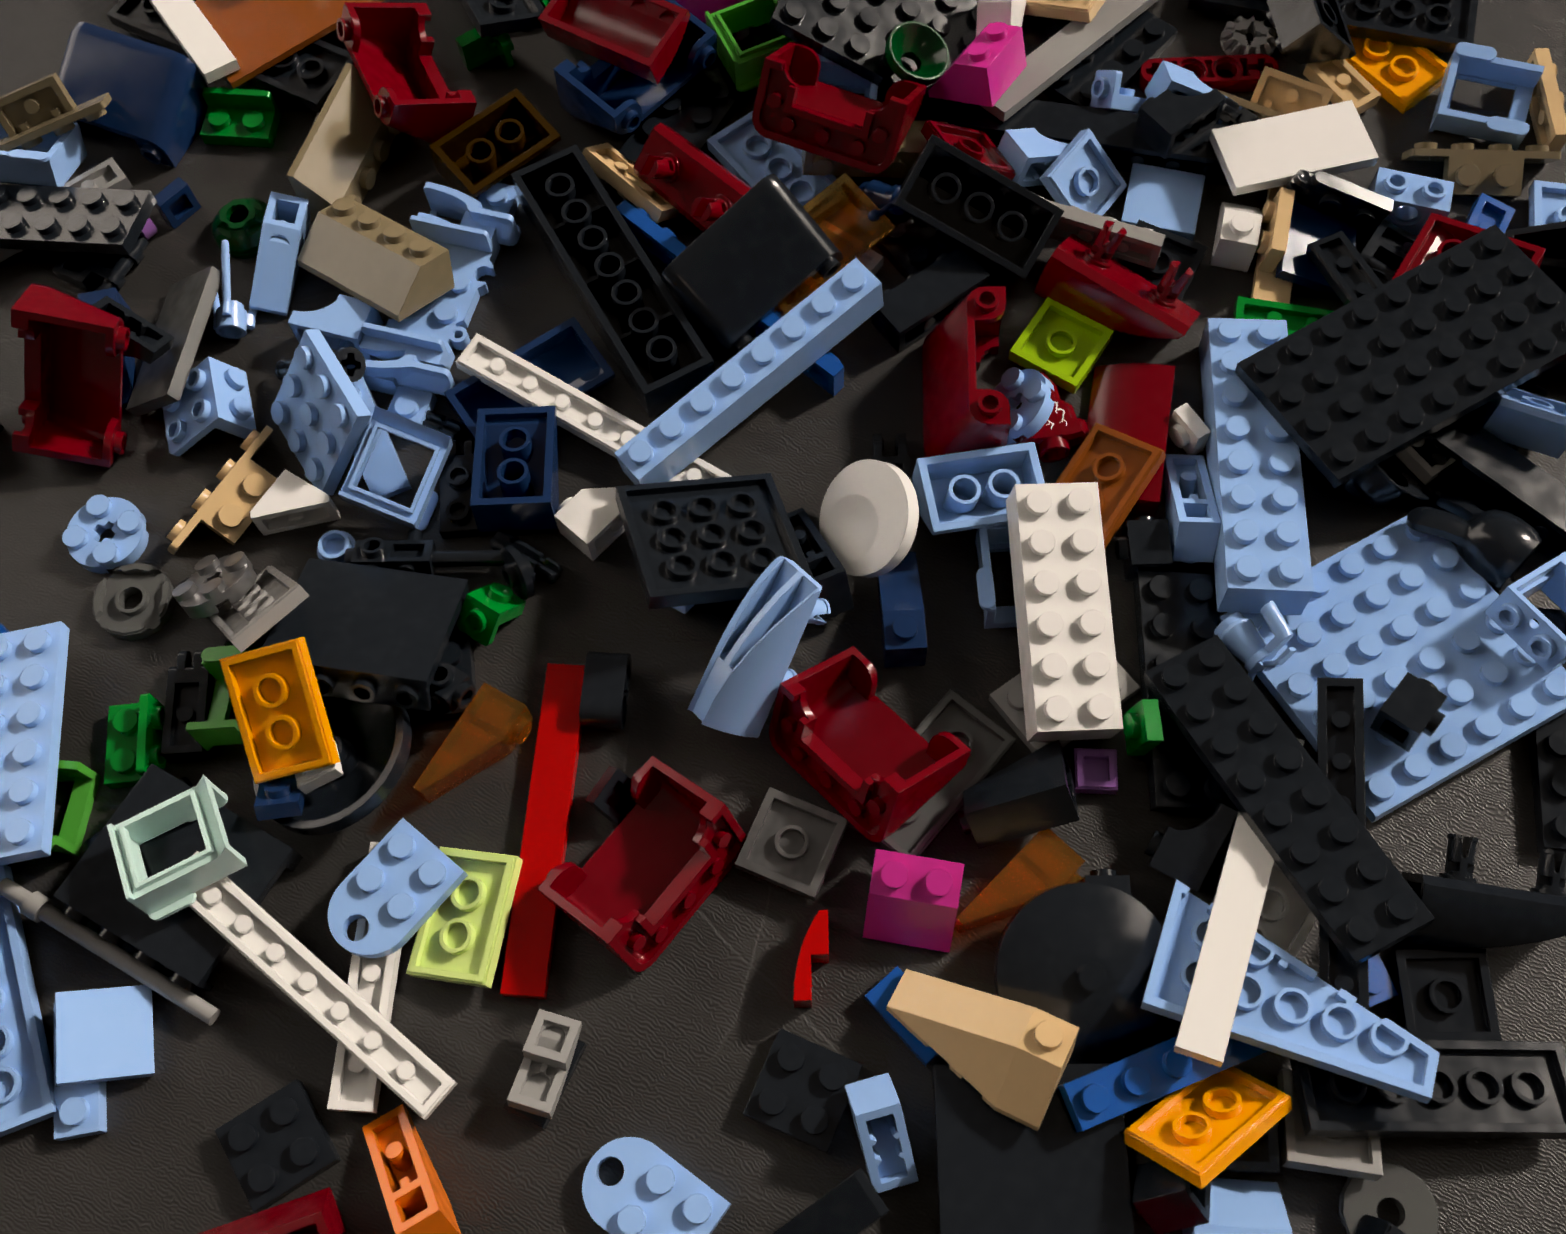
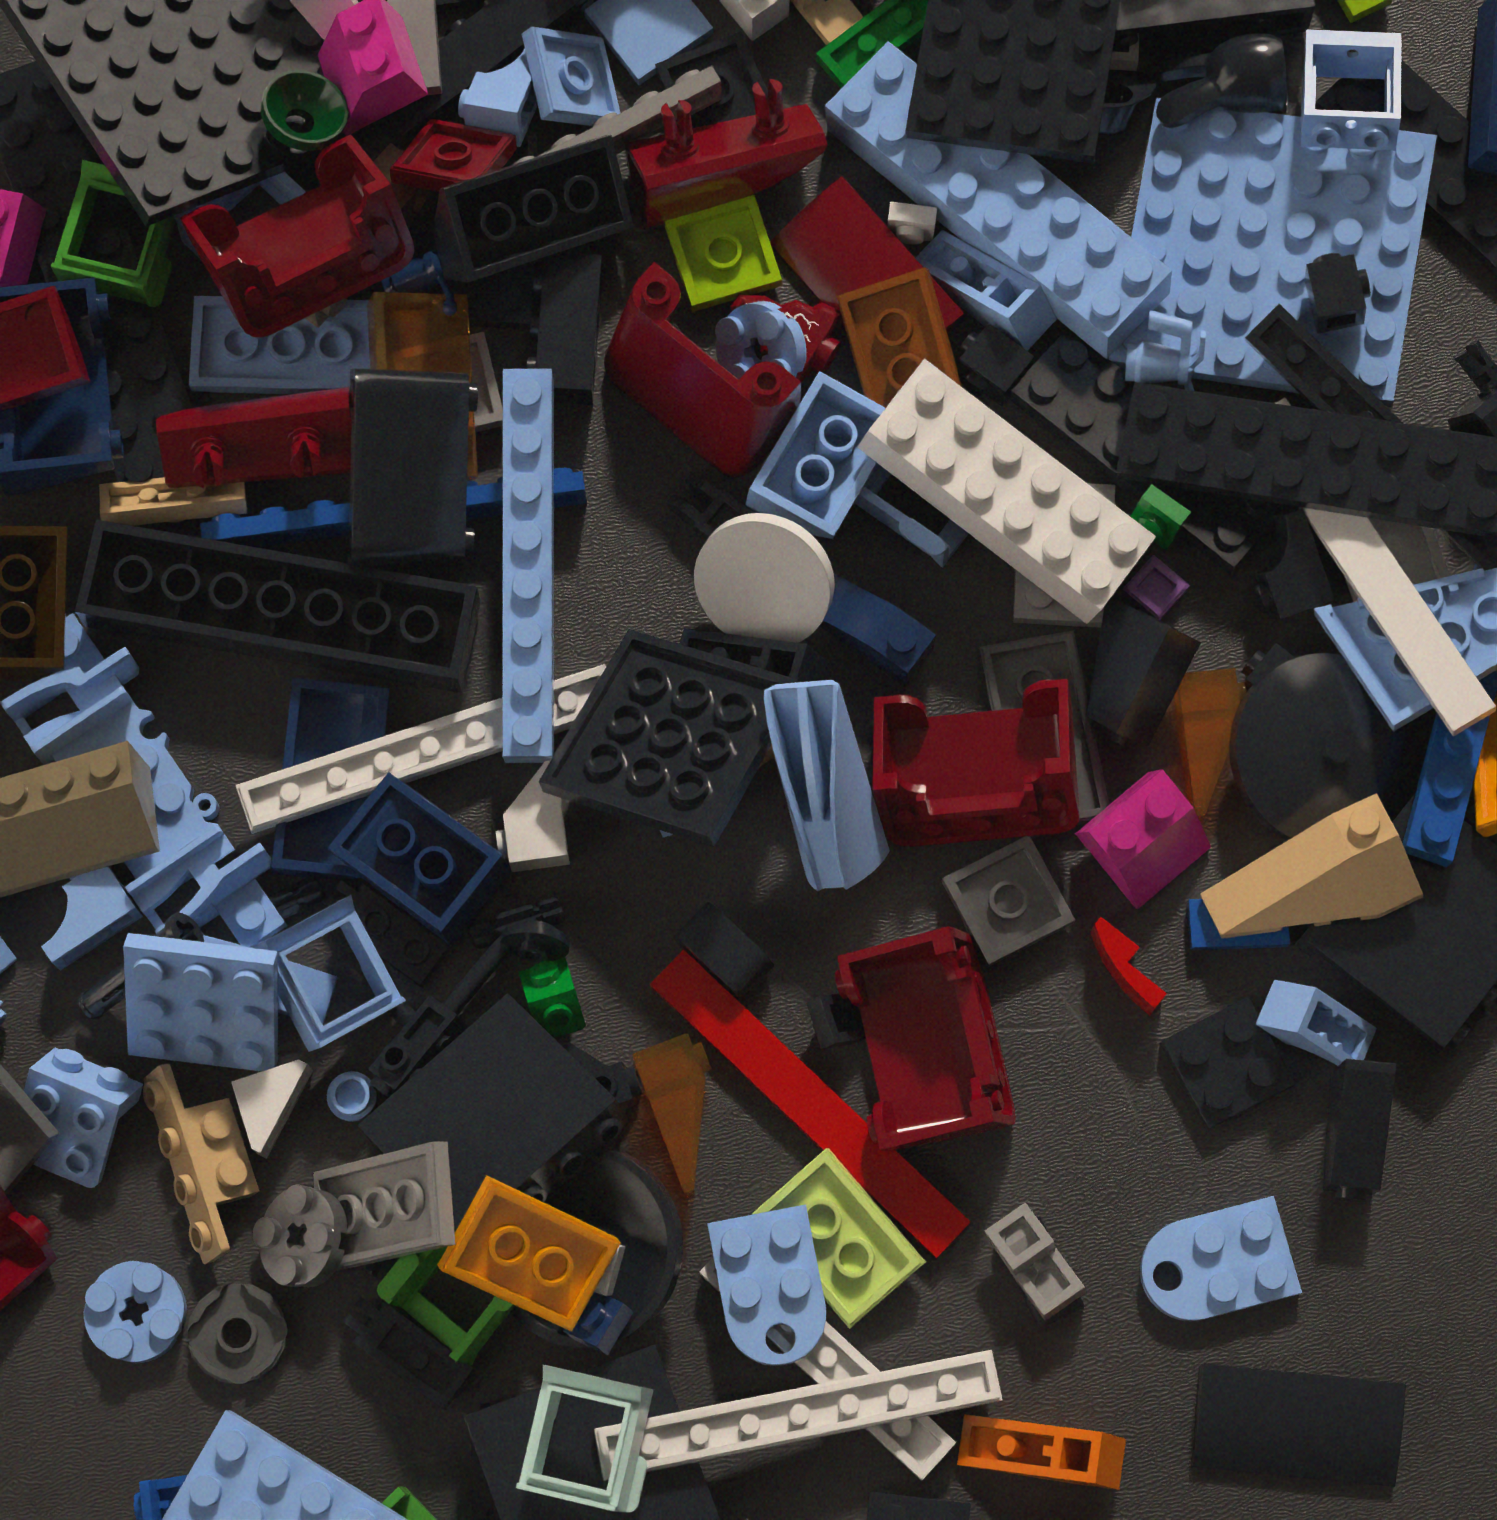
camera: 55 degrees left, 10 degrees up
(133, 741) = (403, 1430): green bracket -> none

